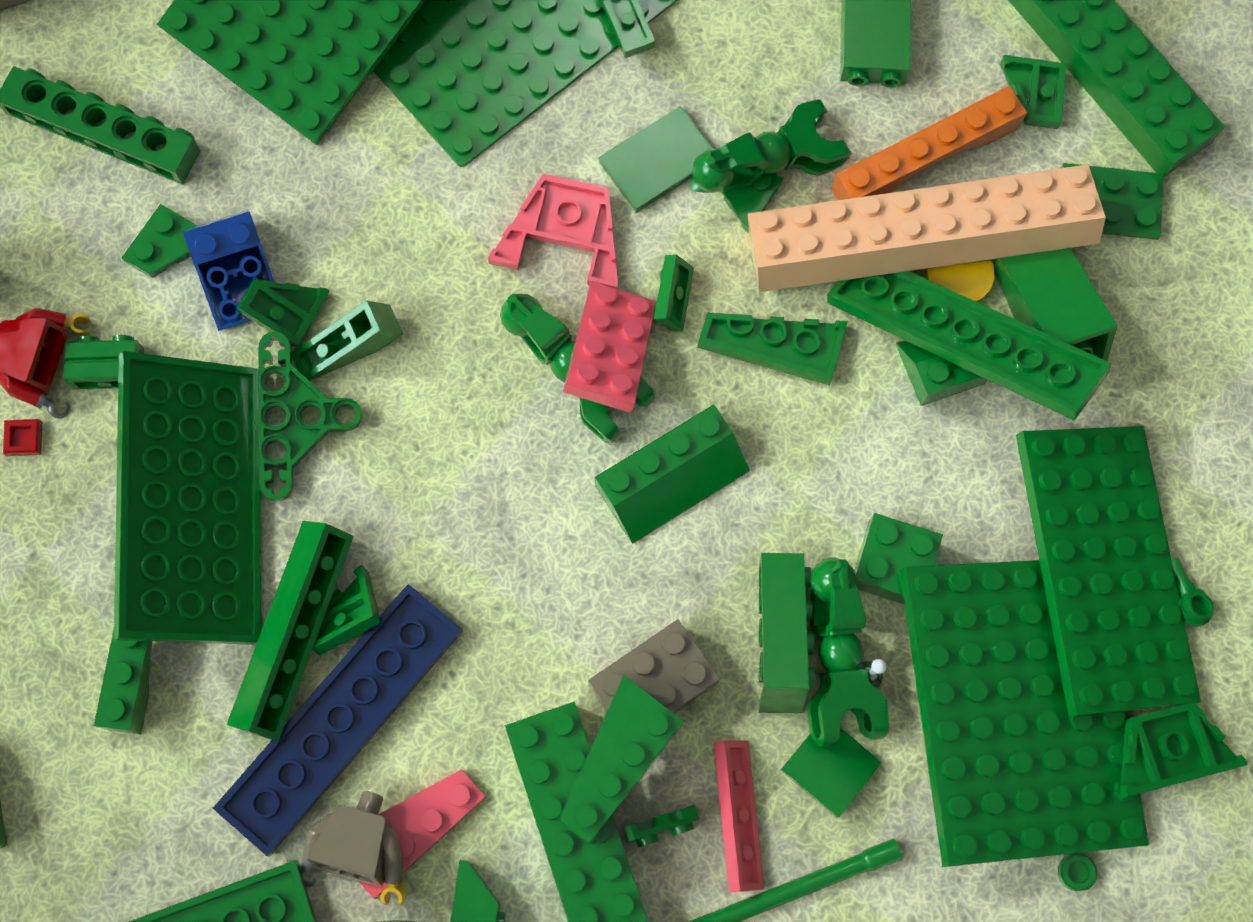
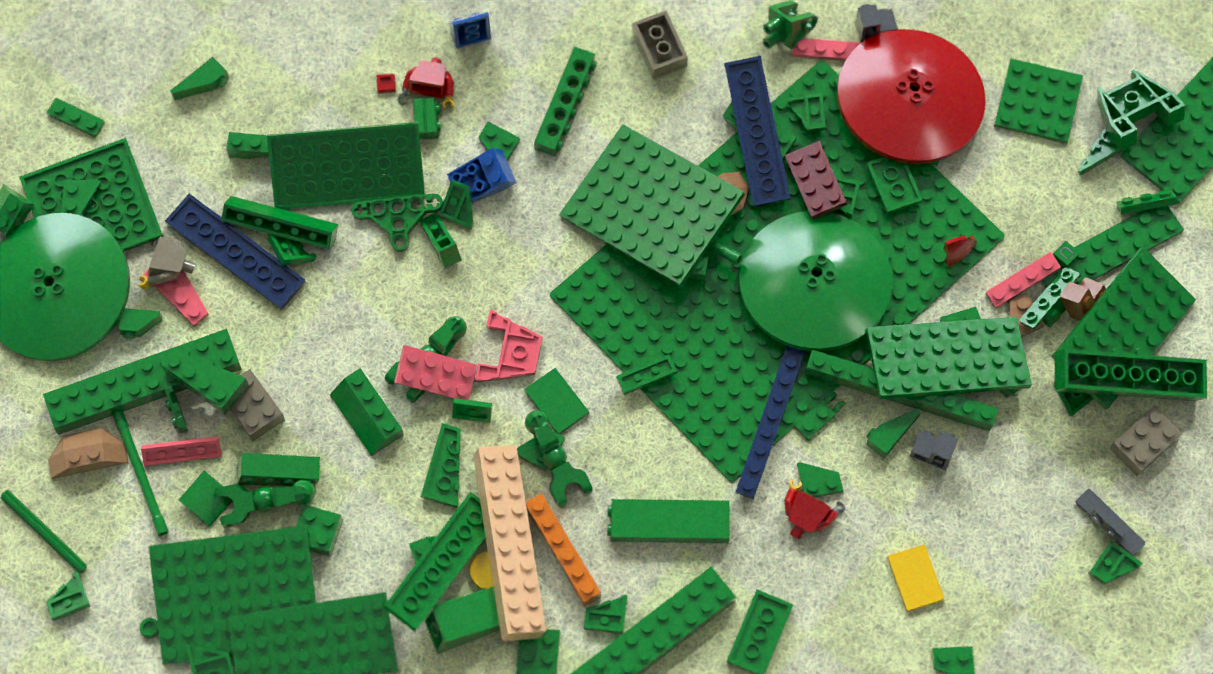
camera: 90 degrees right, 5 degrees down
(875, 670) = (257, 520): white hinge -> none

